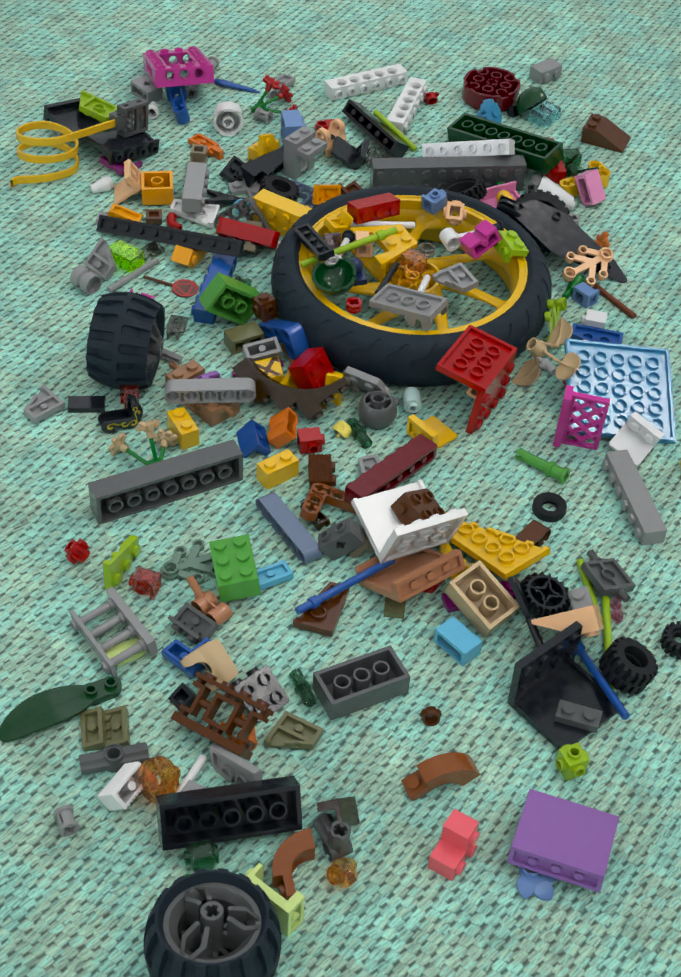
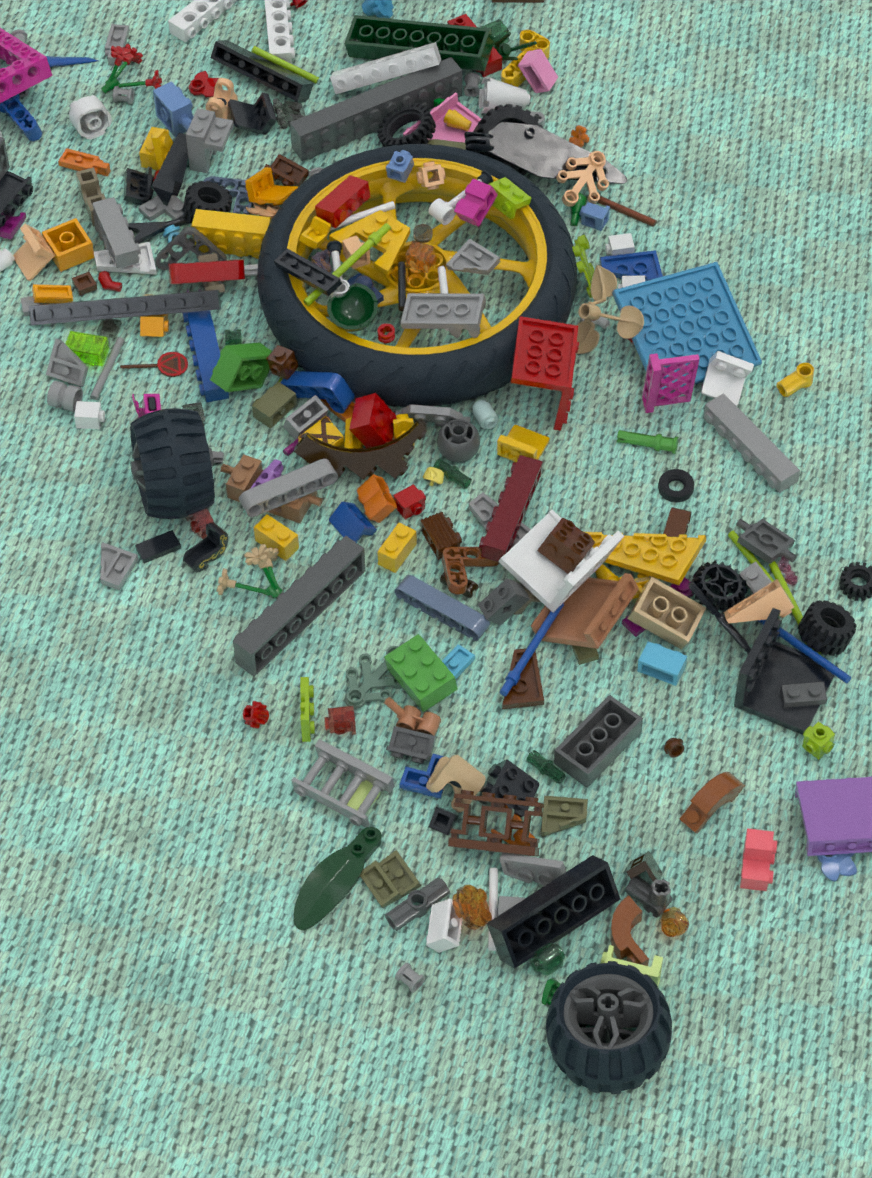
camera: 20 degrees left, 10 degrees up
(91, 295) = (89, 415): none -> white brick

